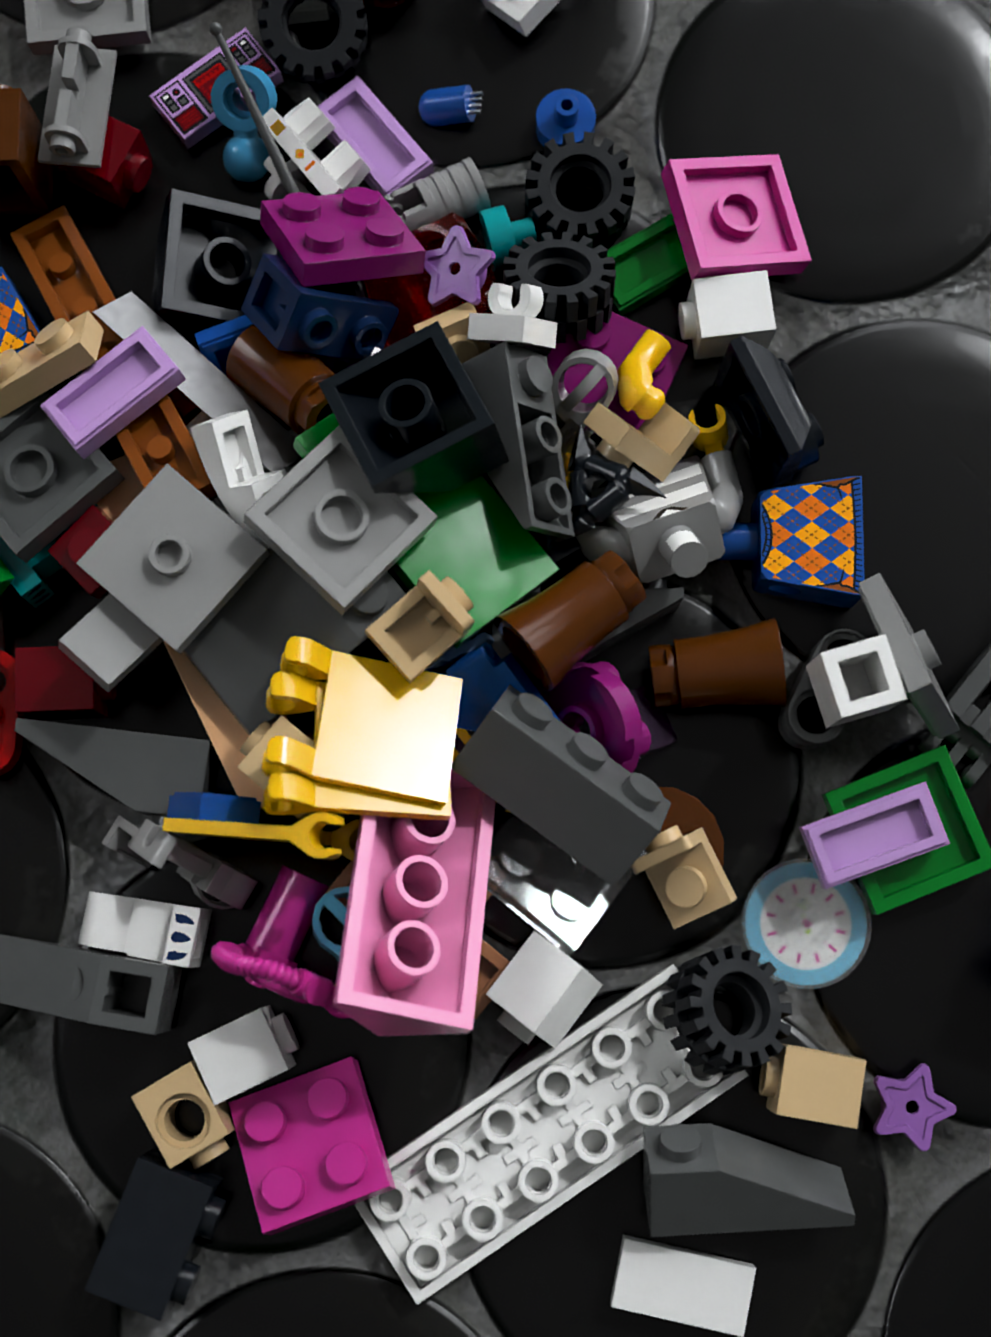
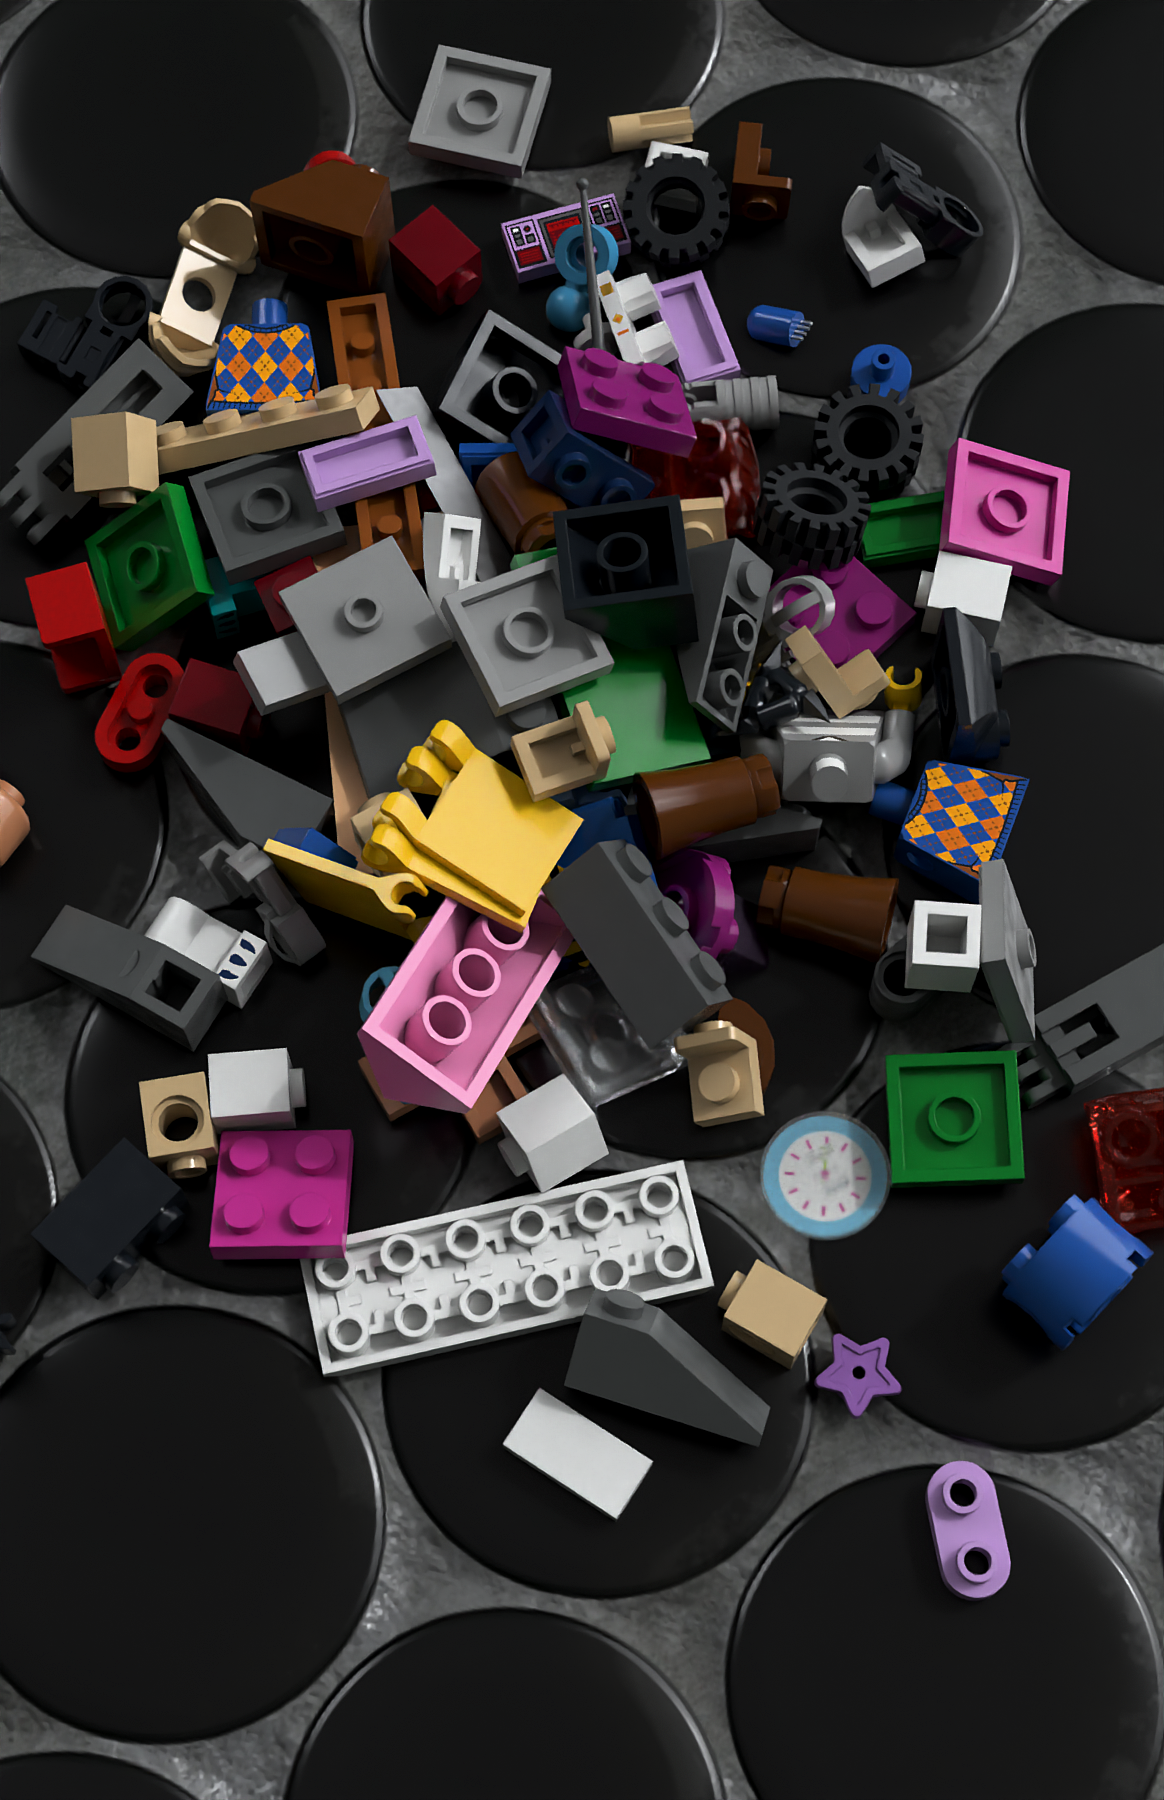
camera: 20 degrees right, 10 degrees down
(77, 102) = (433, 206): light grey hinge -> none
(275, 941) = (321, 1008): dark pink piece -> none
(472, 272) = (730, 475): medium lavender plate -> none
(501, 234) = (778, 452): teal tile -> none
(513, 324) = (752, 527): white tile -> none
(636, 377) = (855, 614): yellow arm -> none
(756, 1001) = (687, 1225): black tyre -> none
(874, 835) = (915, 1105): lavender tile -> none

